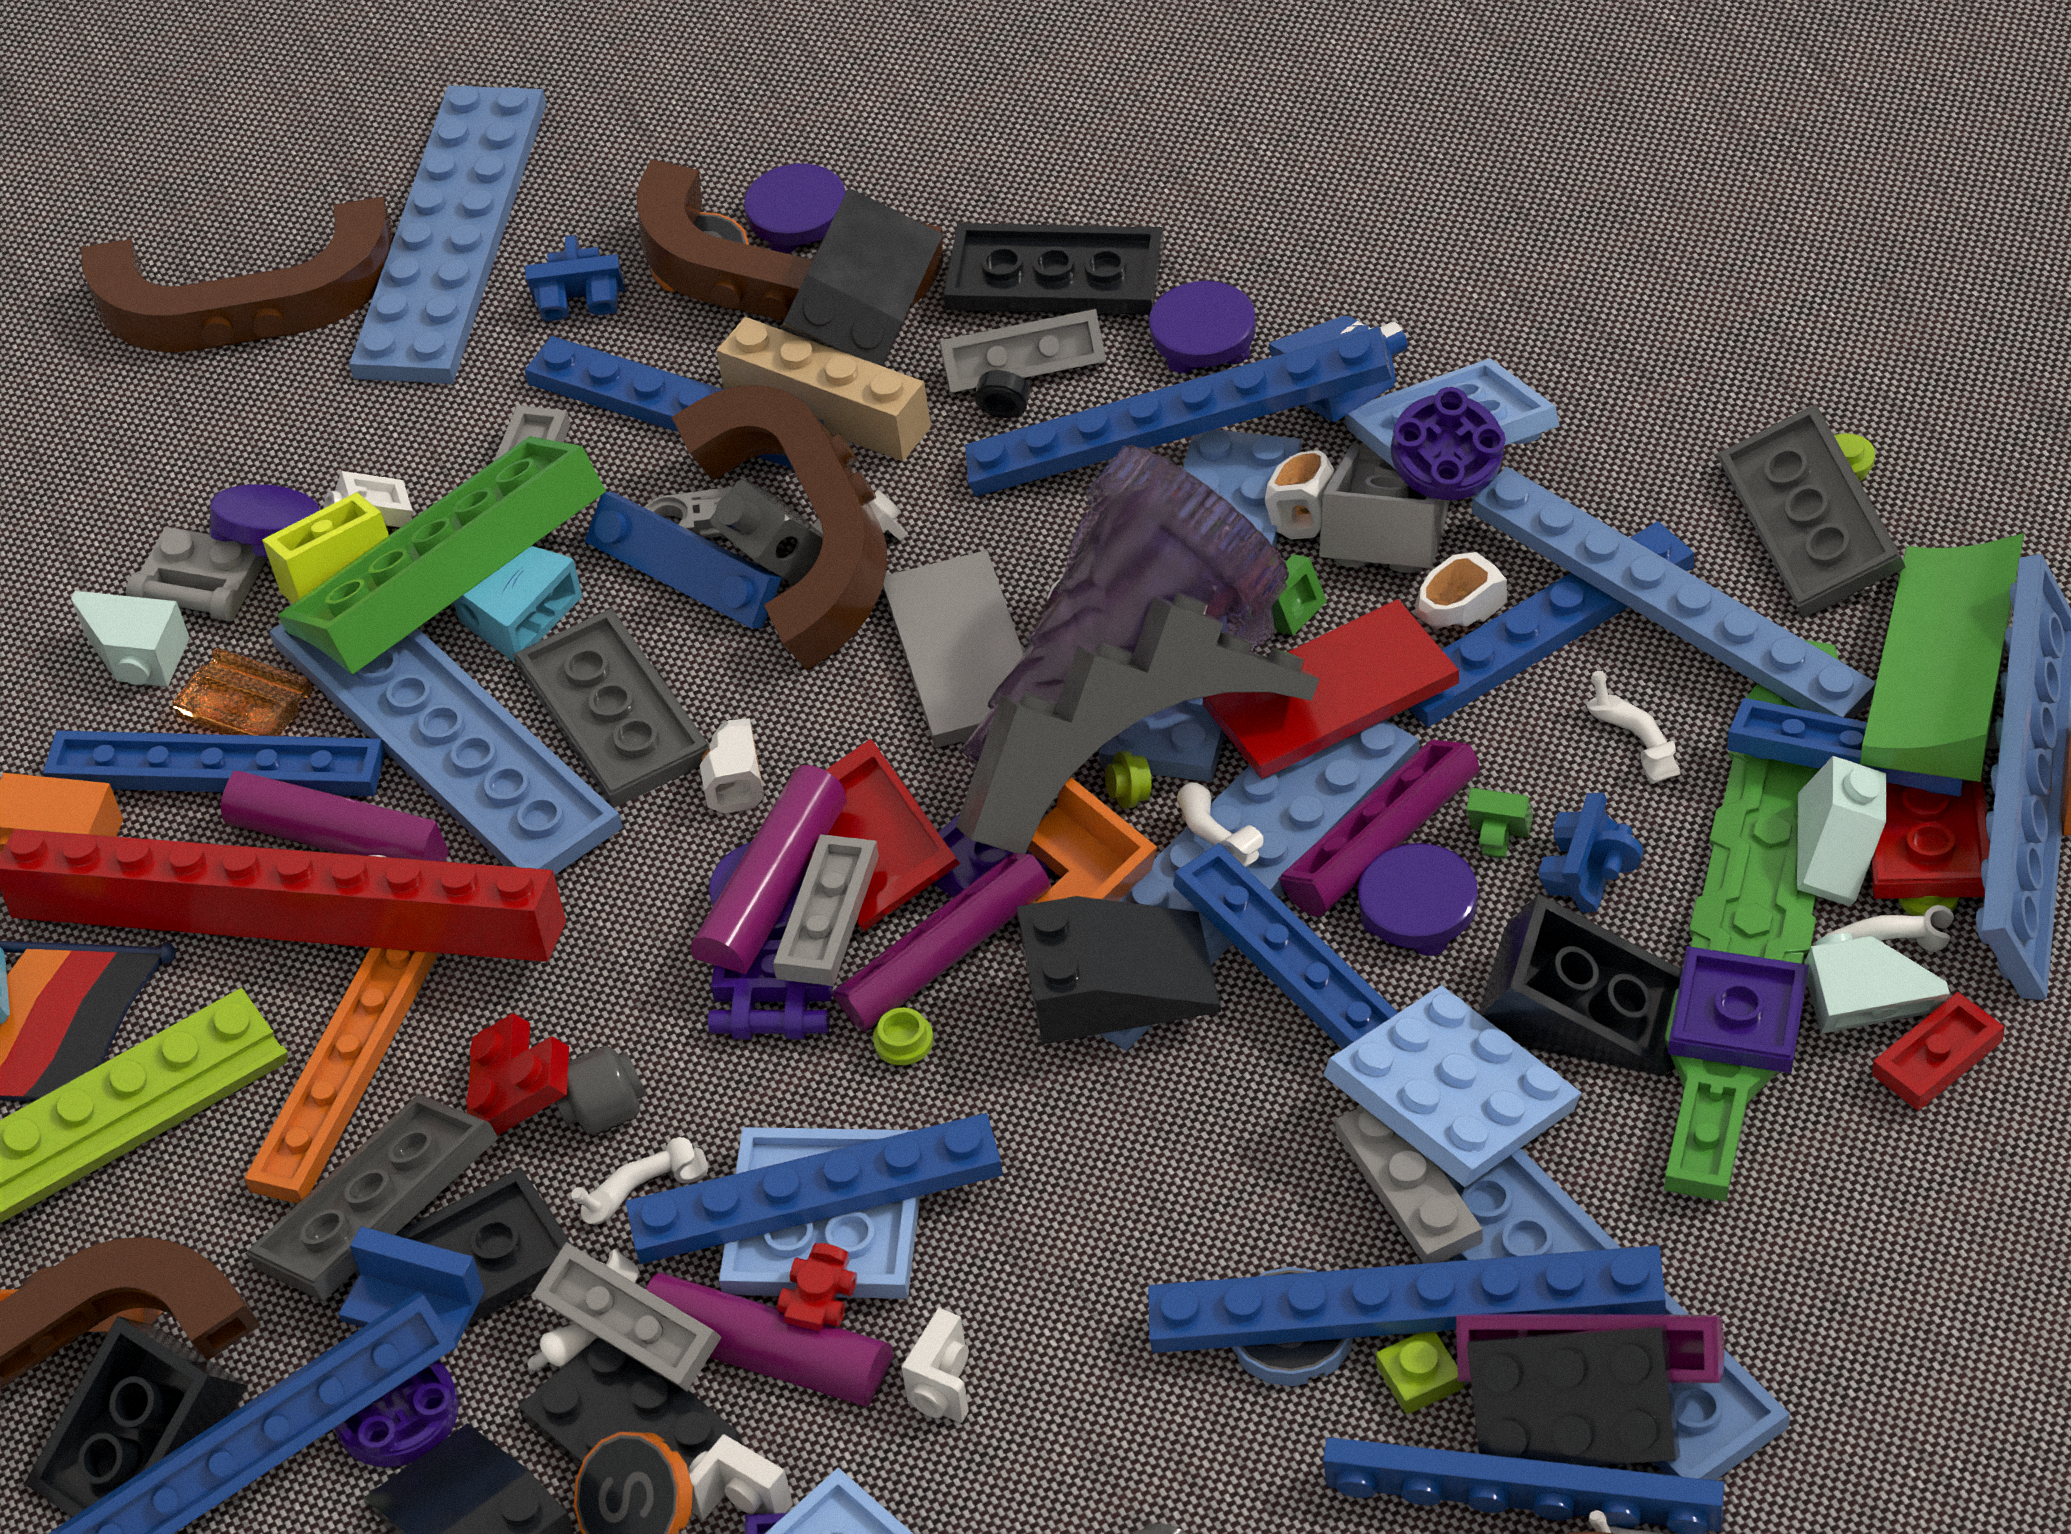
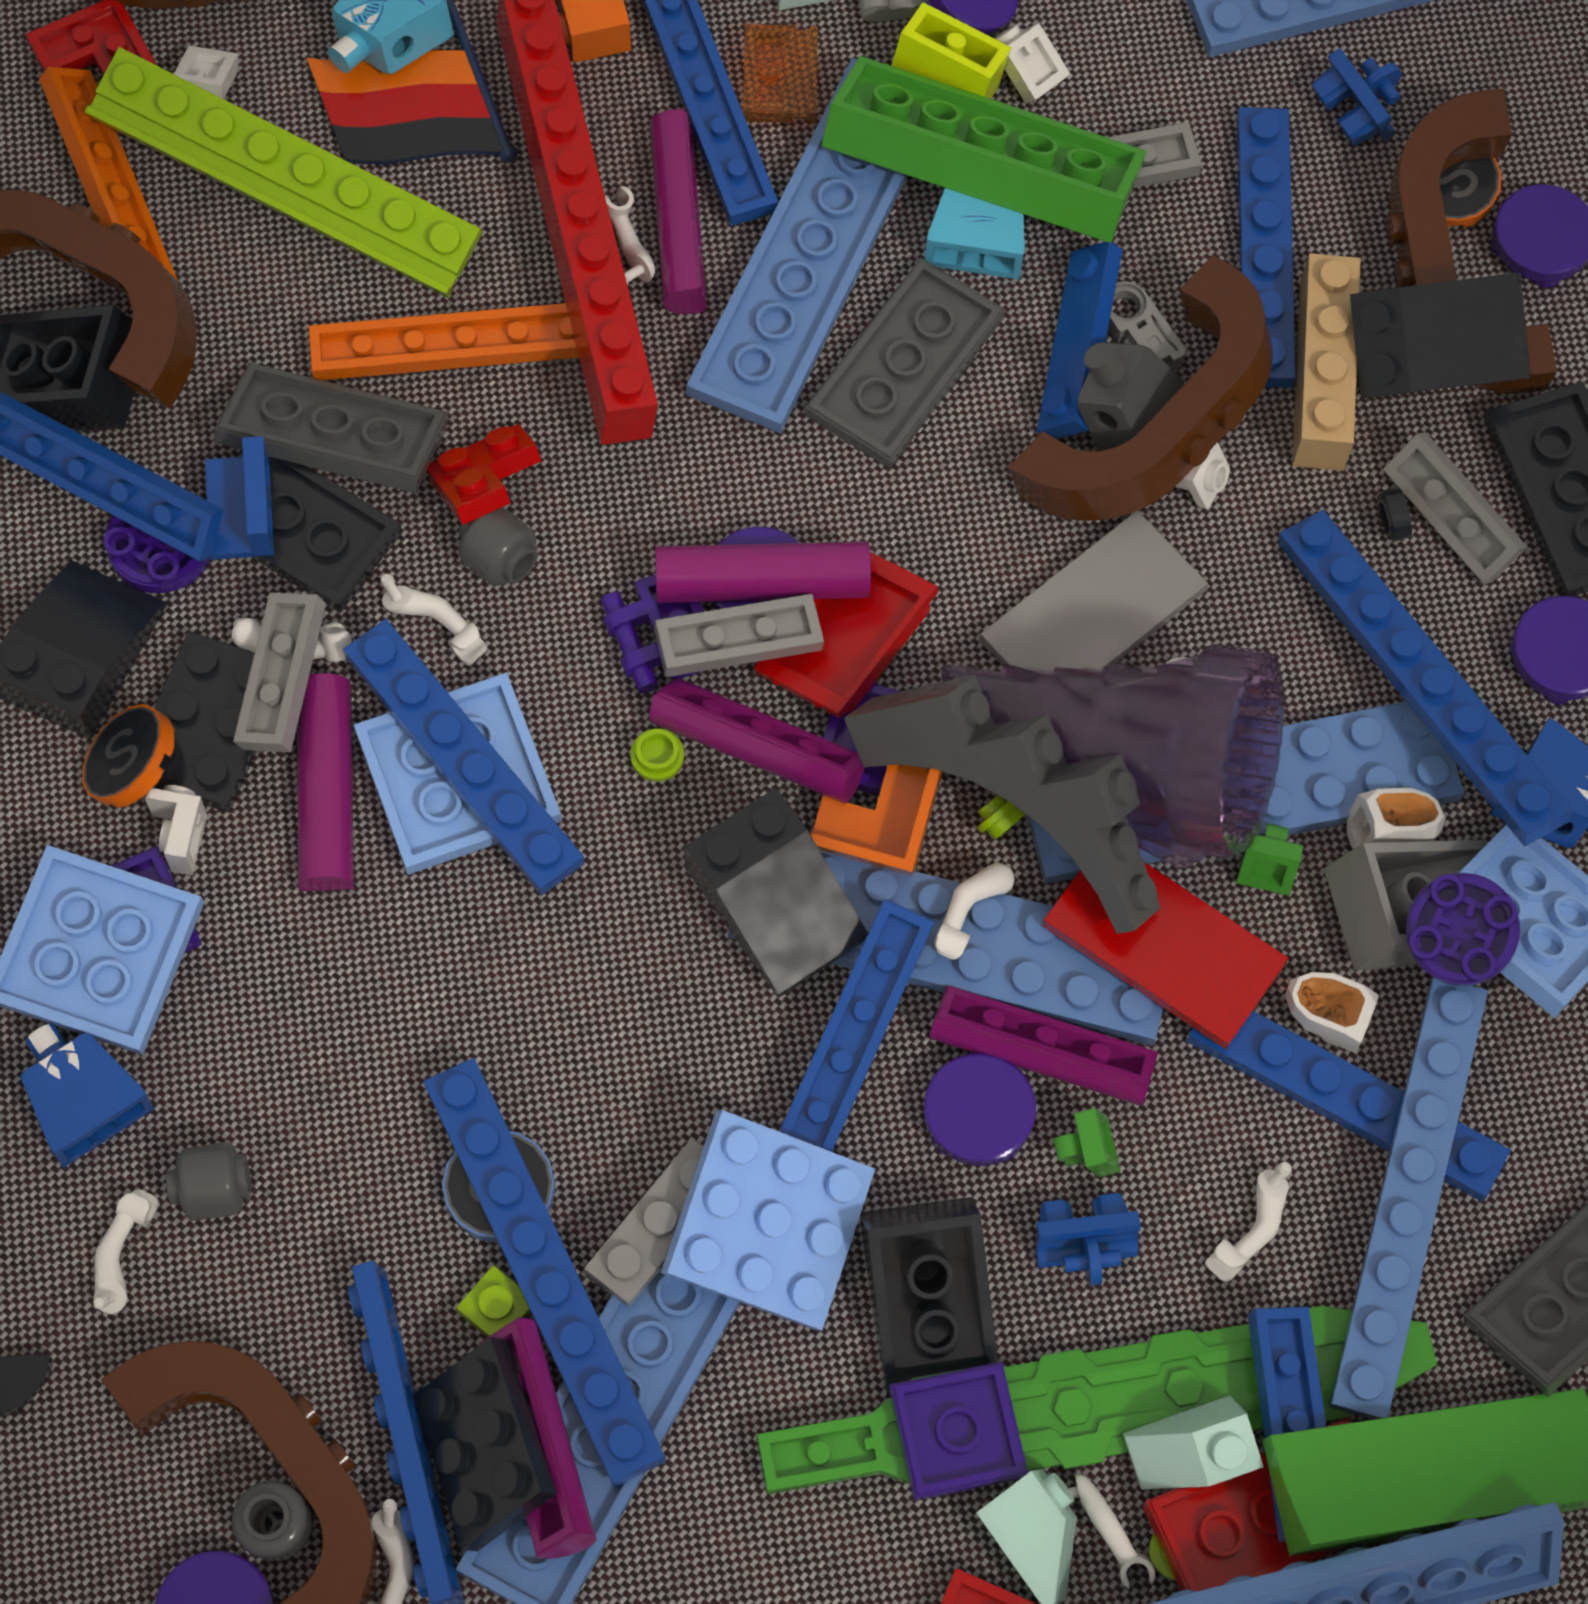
camera: 55 degrees right, 20 degrees up
(732, 769) = (875, 489): white rock -> none
(817, 1285) = (354, 802): red piece -> none
(934, 1369) = (347, 923): white bracket -> none

